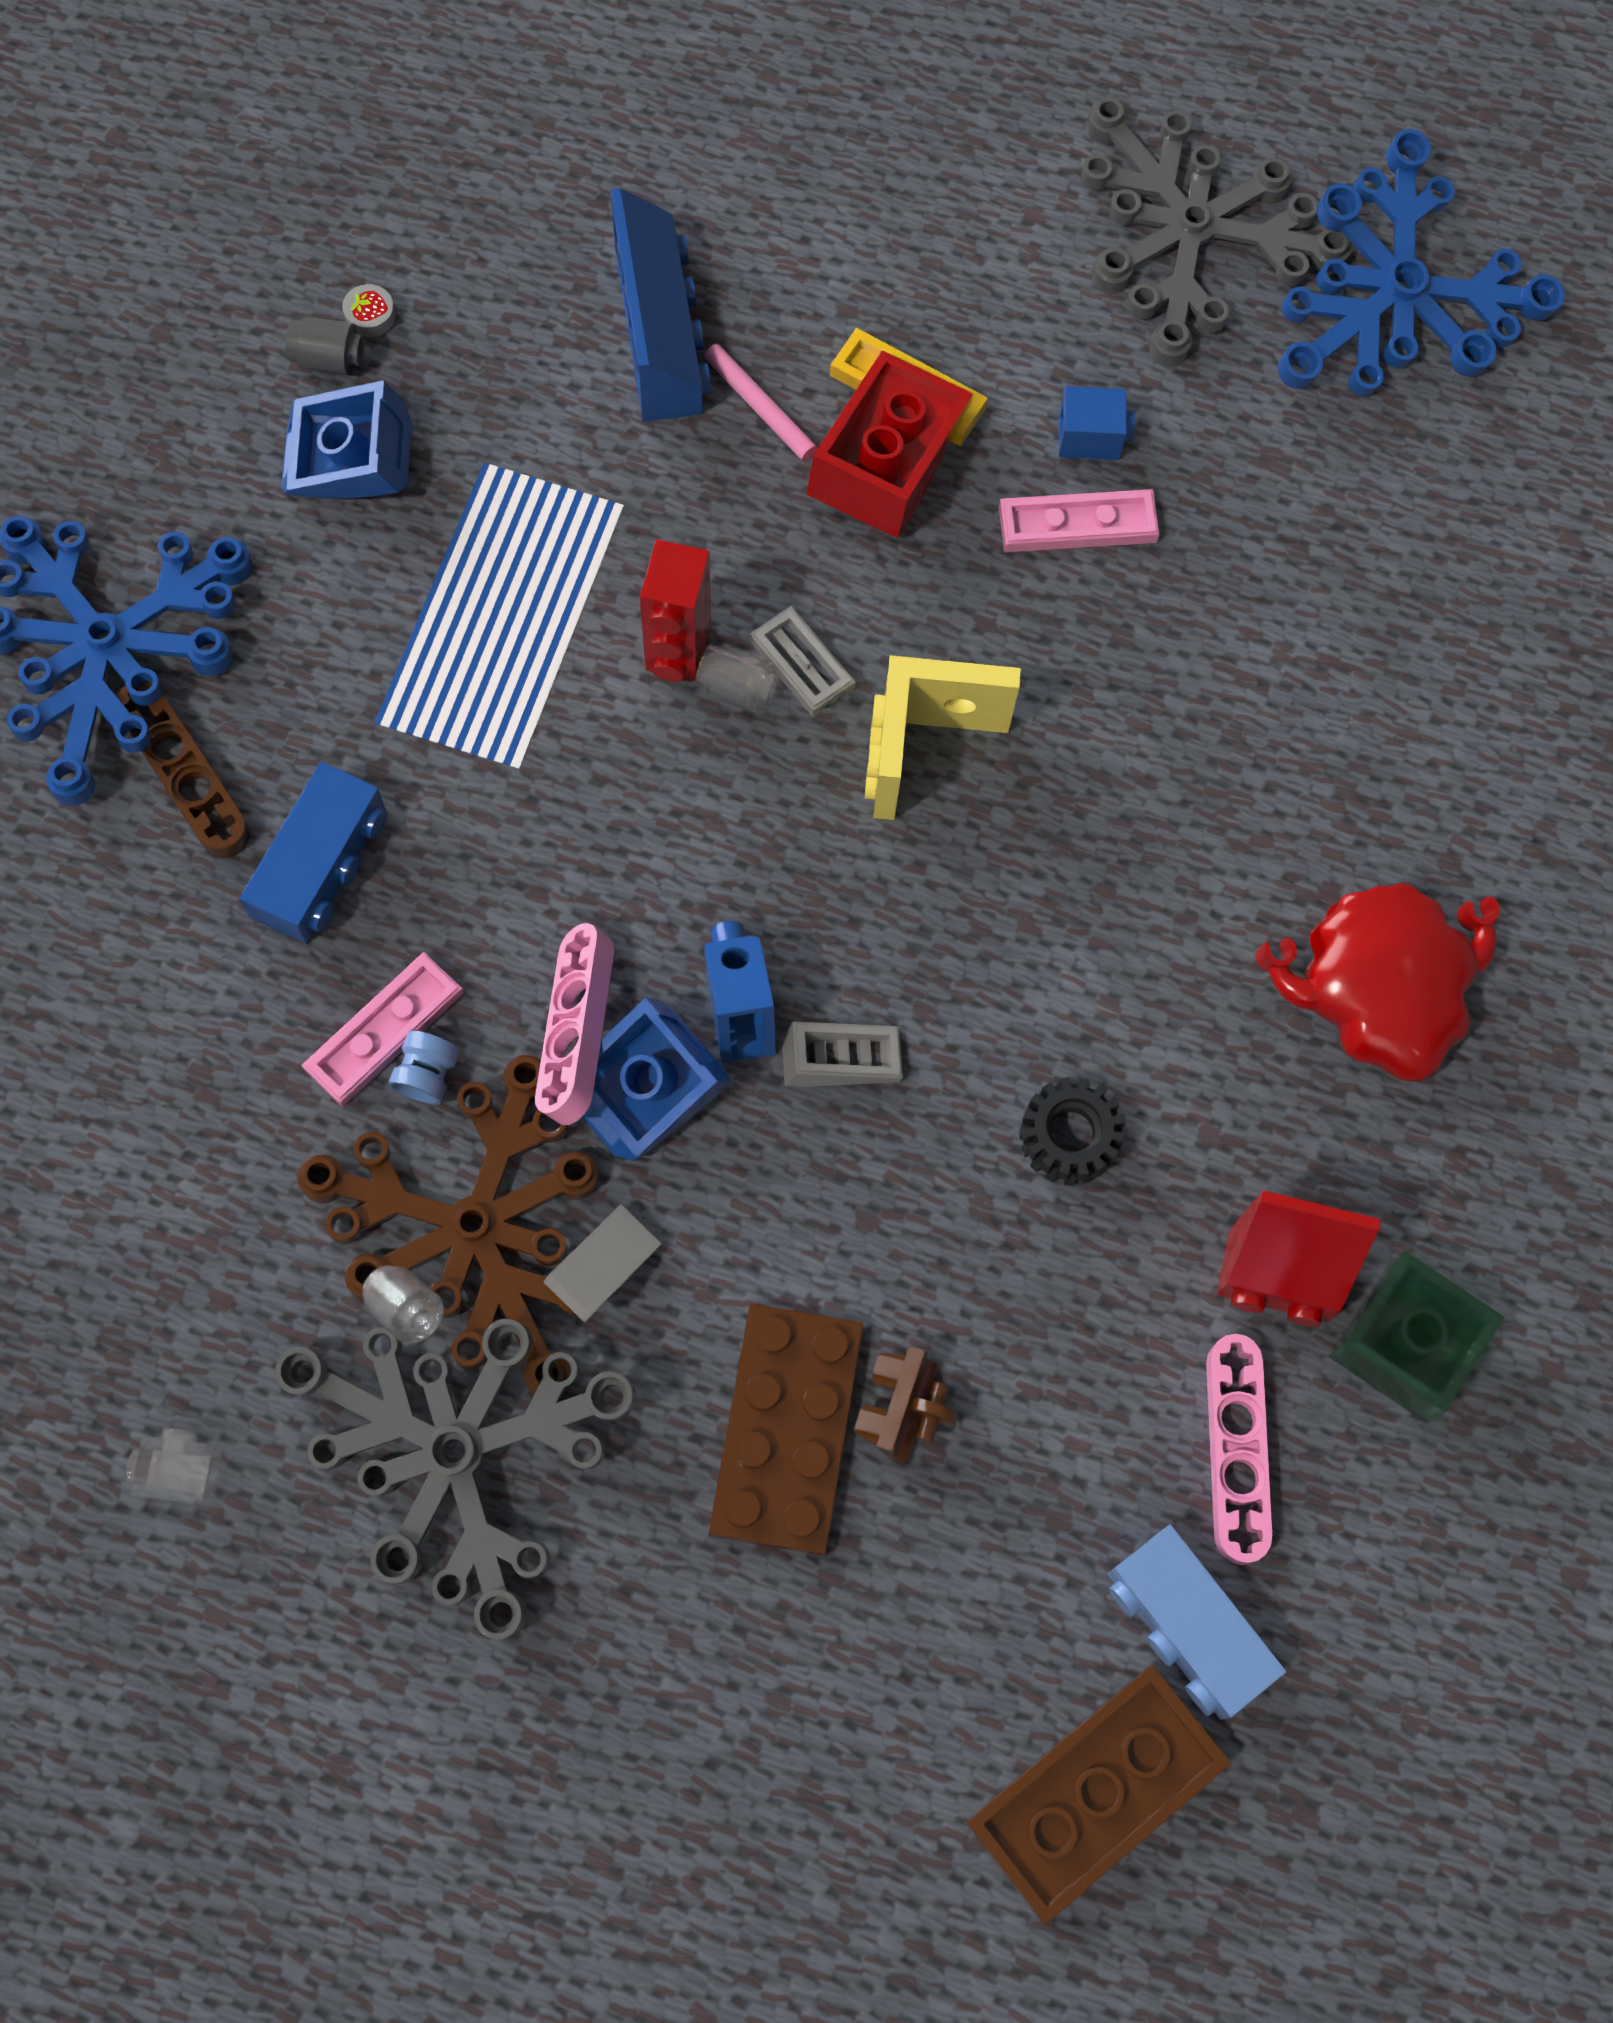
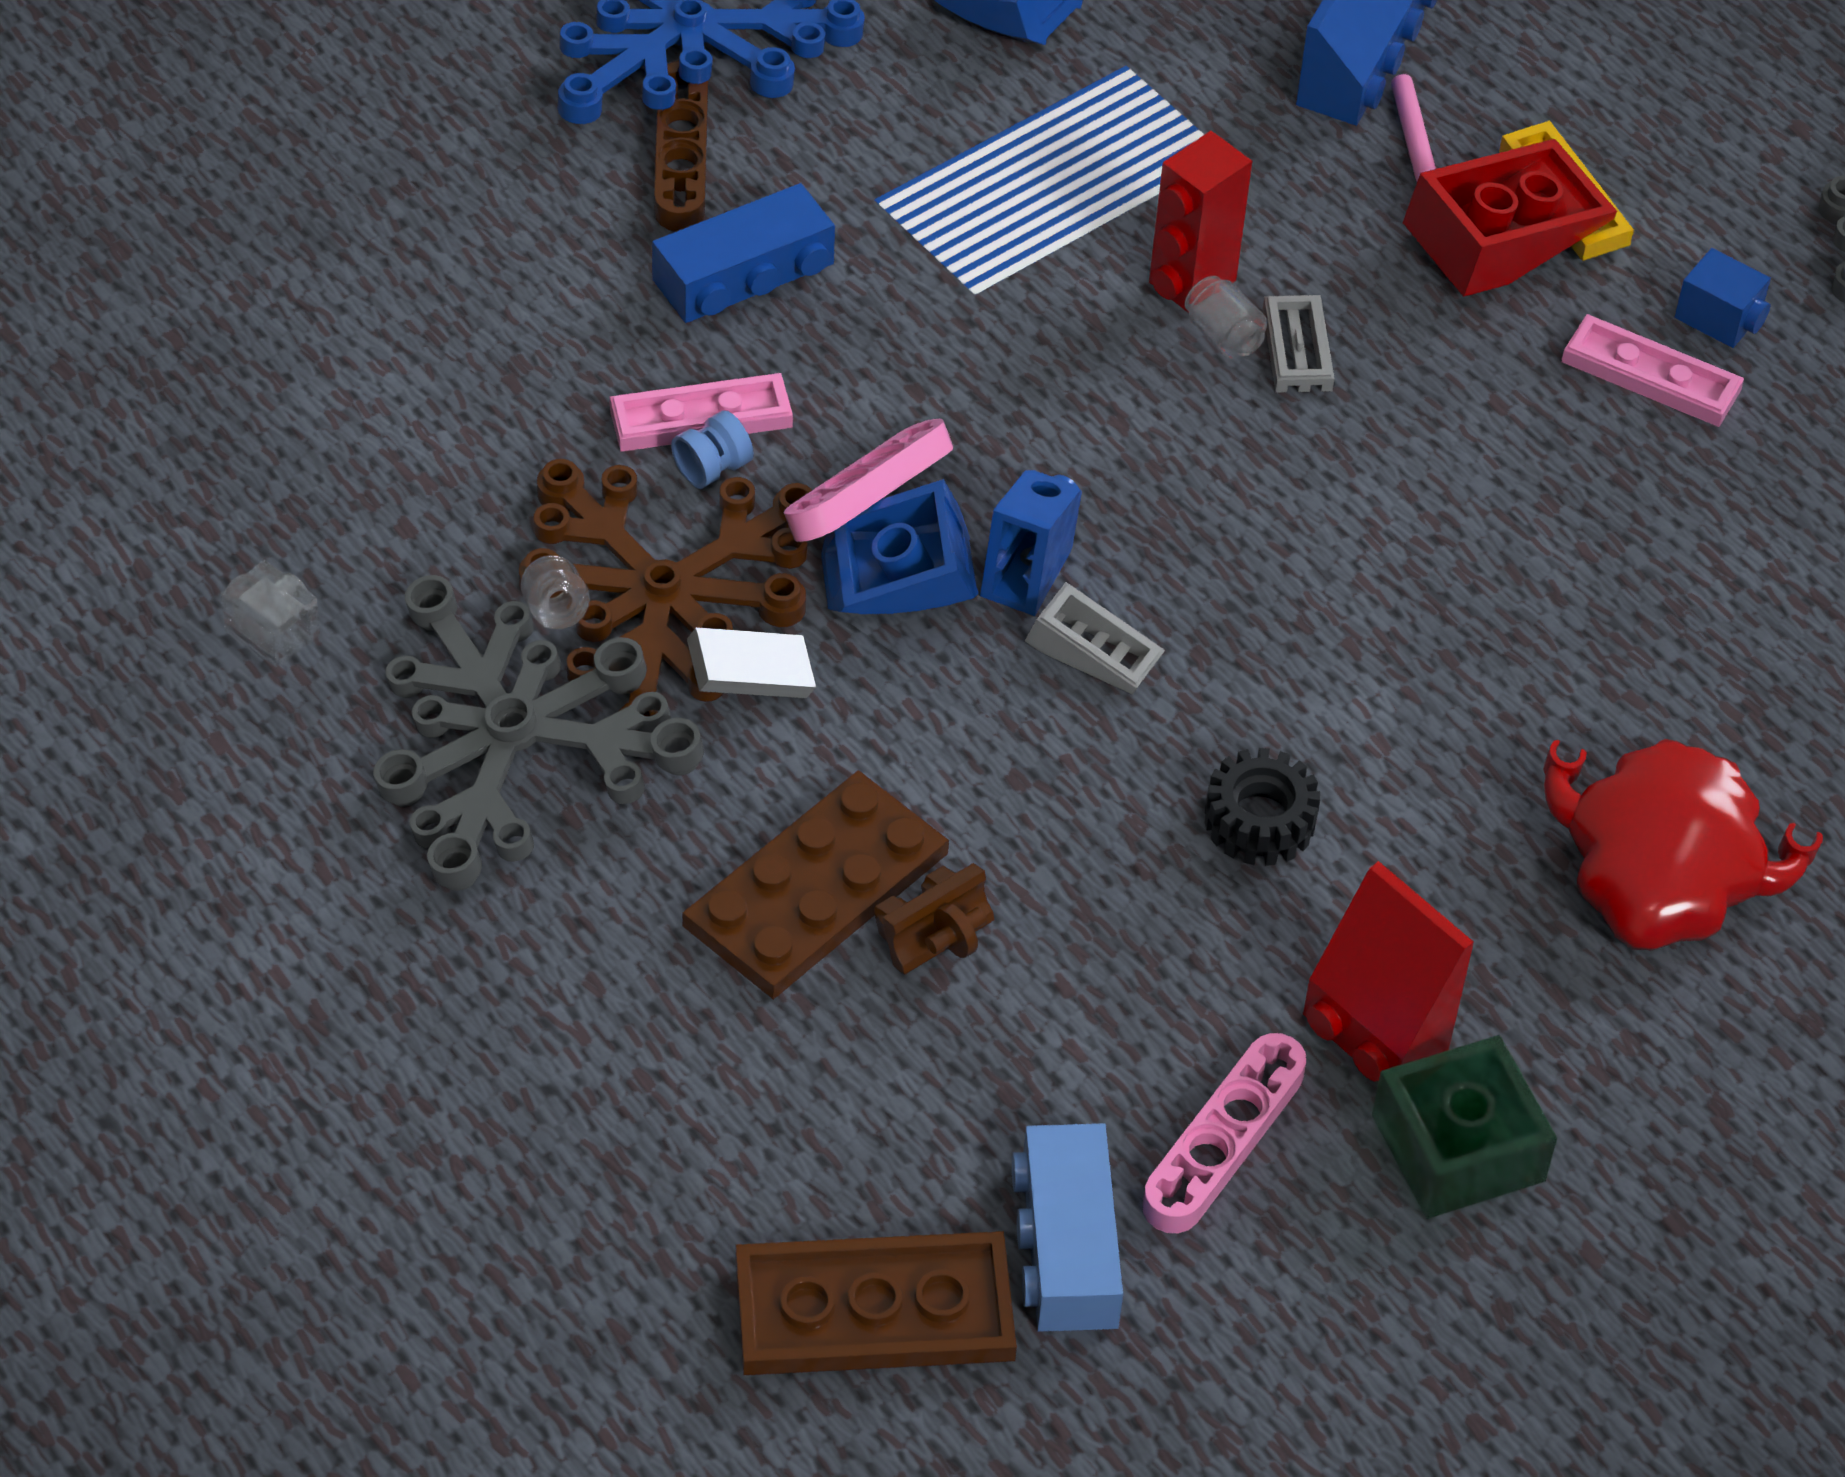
camera: 35 degrees right, 20 degrees down
(932, 695) = (1374, 400): light yellow bracket -> none

